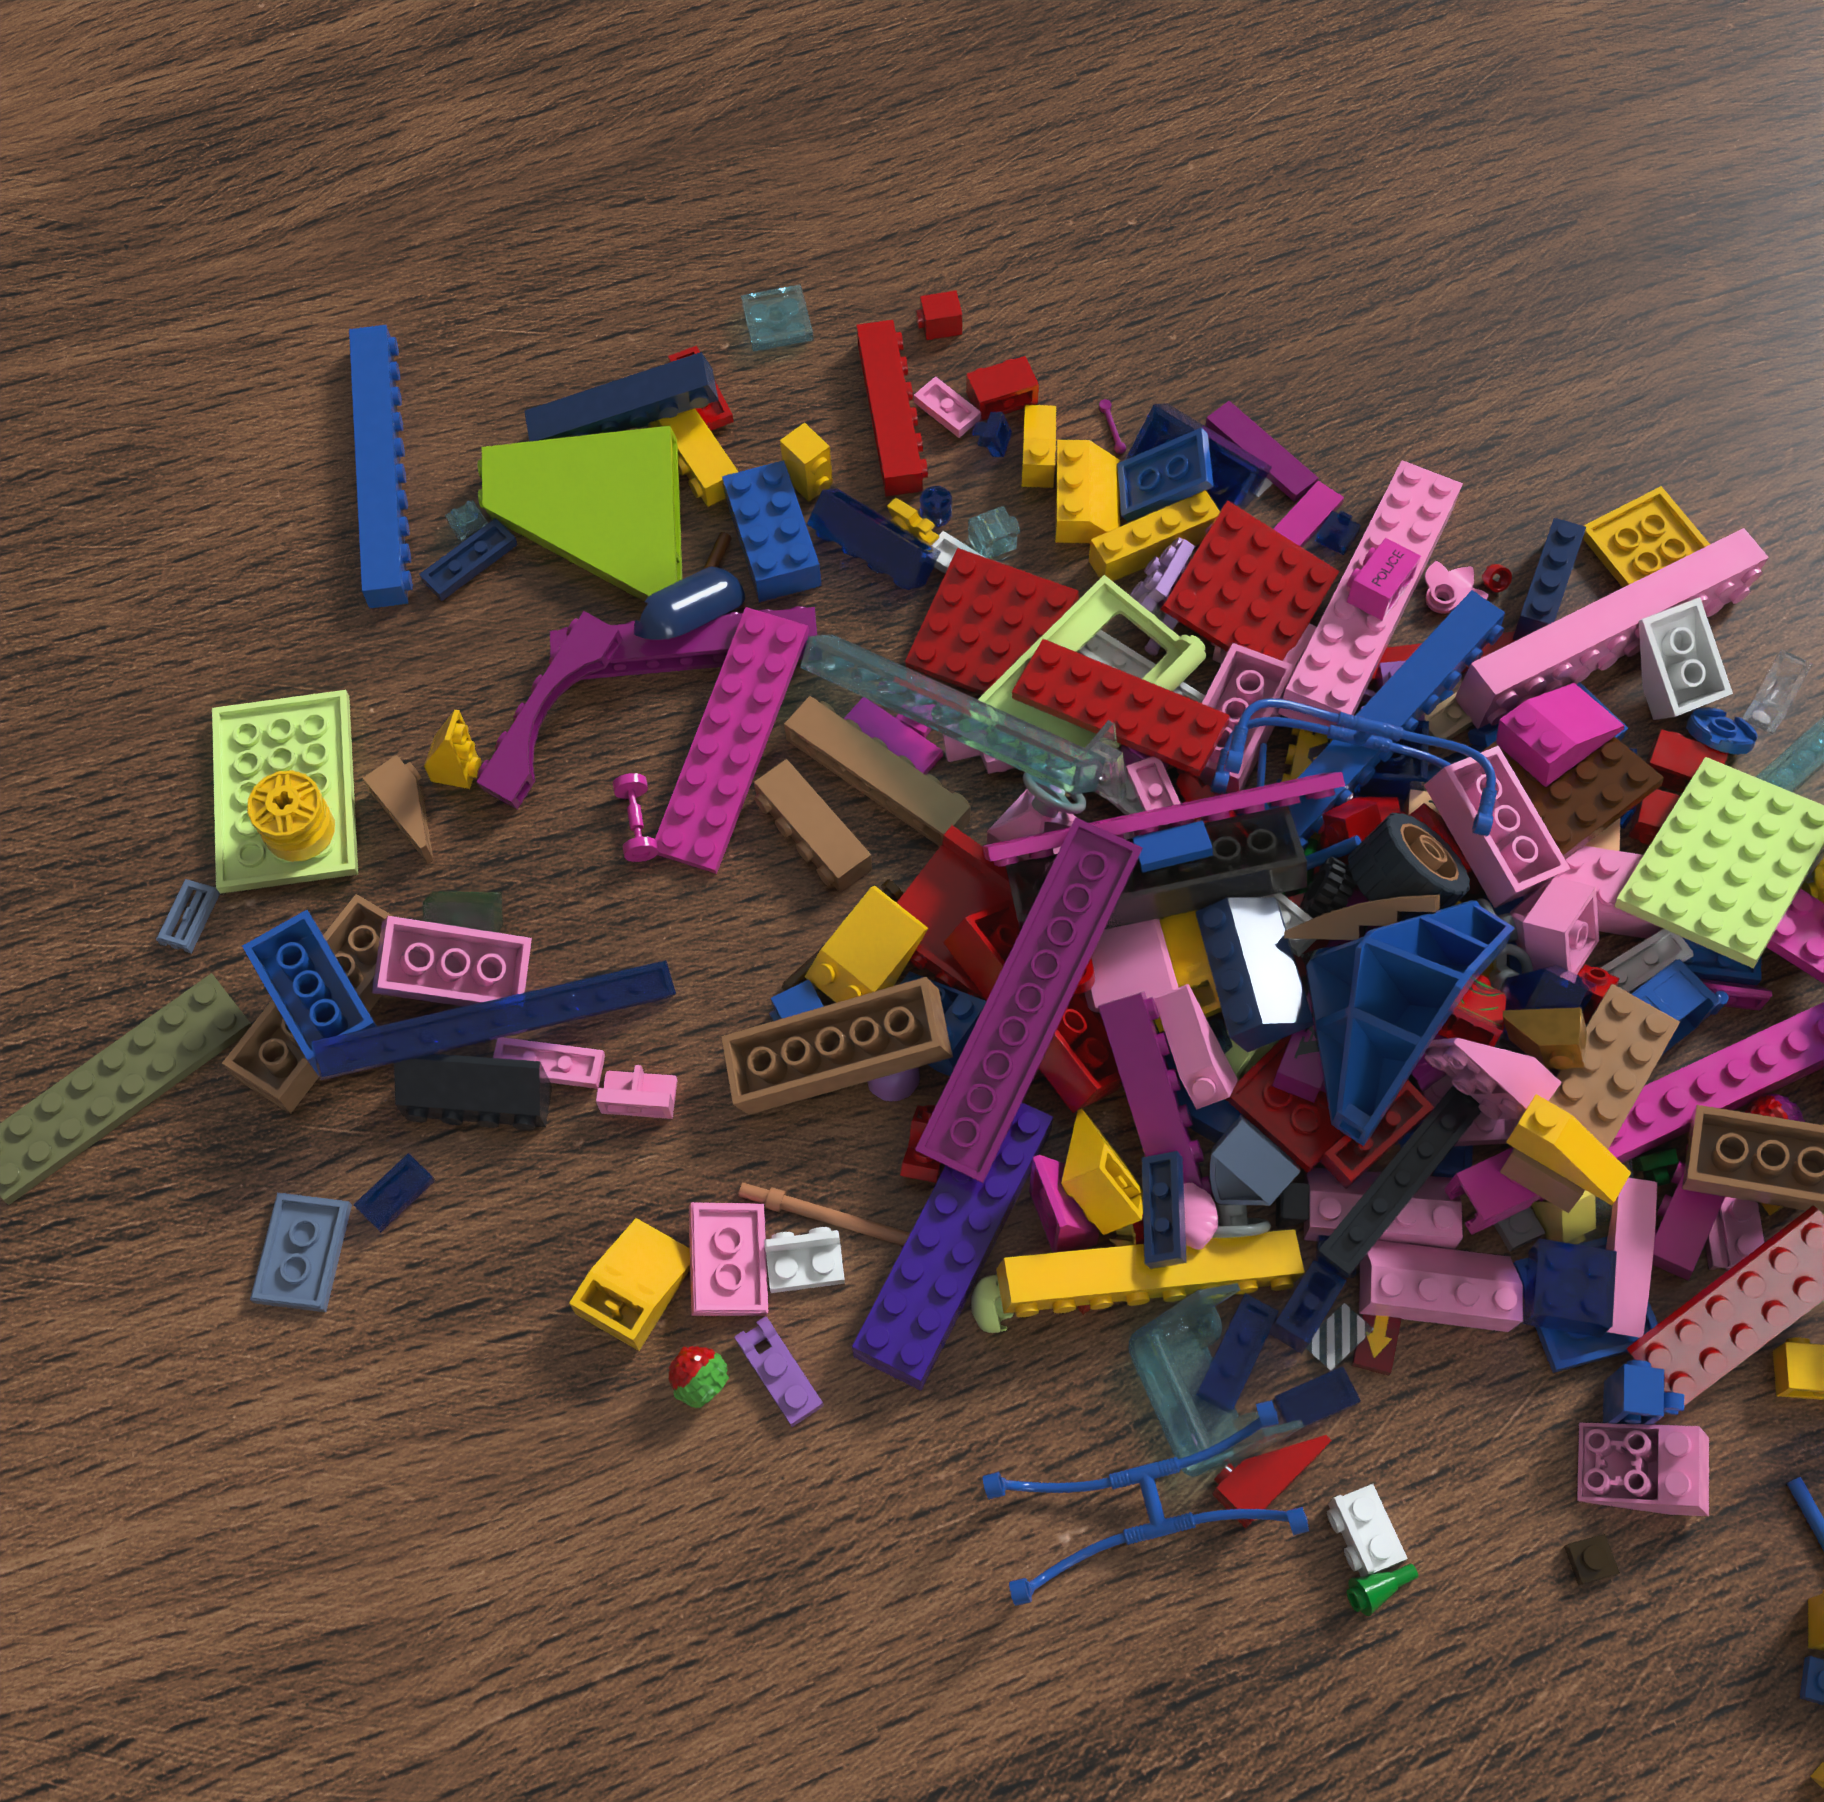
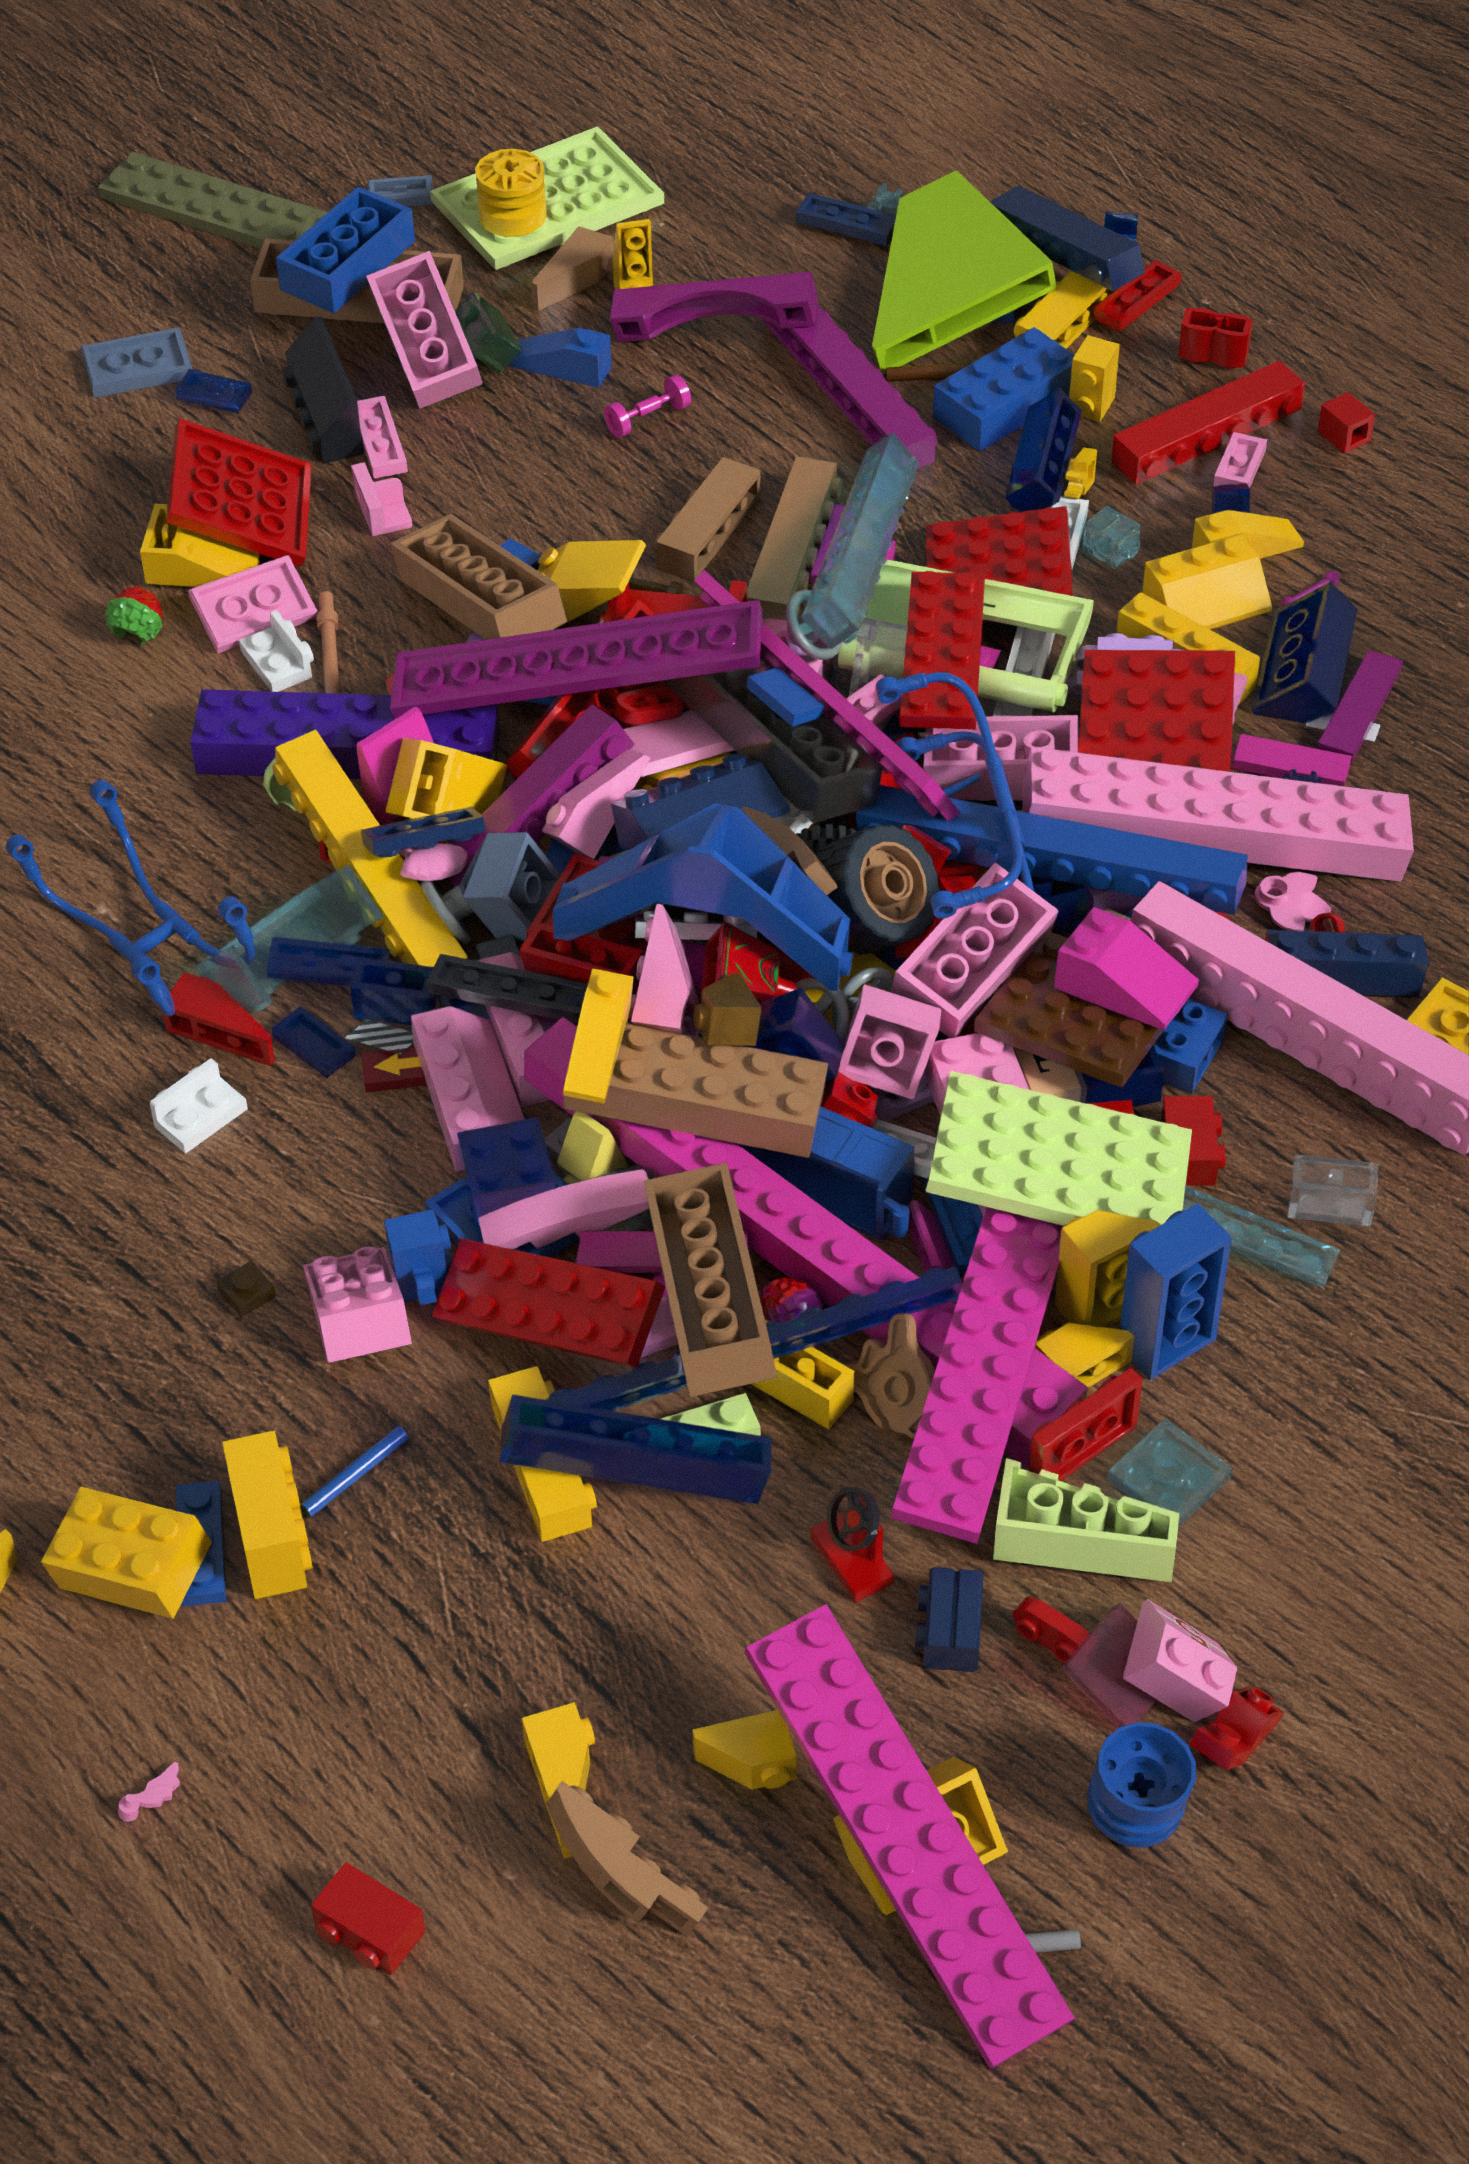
camera: 65 degrees right, 15 degrees down
(379, 467) = (906, 130): blue brick -> none
(491, 1020) = (388, 369): clear blue plate -> none
(525, 858) = (568, 355): none -> blue slope
(585, 1218) = (239, 492): none -> red plate
(611, 363) = (1122, 223): none -> clear blue tile
(689, 604) = (882, 351): dark blue brick -> none
(730, 740) = (762, 431): dark pink plate -> none
(777, 317) = (1271, 314): clear light blue plate -> none
(779, 1373) = (168, 673): medium lavender plate -> none
(797, 356) = (1215, 337): none -> red brick
(942, 501) = (1117, 490): clear blue wheel -> none
(1002, 387) = (1289, 491): red brick -> none
(1165, 474) = (1264, 625): blue plate -> none
(1373, 1590) = (139, 1124): green cone -> none
(1383, 578) = (1213, 783): dark pink brick -> none
(1680, 661) = (1303, 1079): white slope -> none
(1720, 732) = (1251, 1157): blue tile -> none

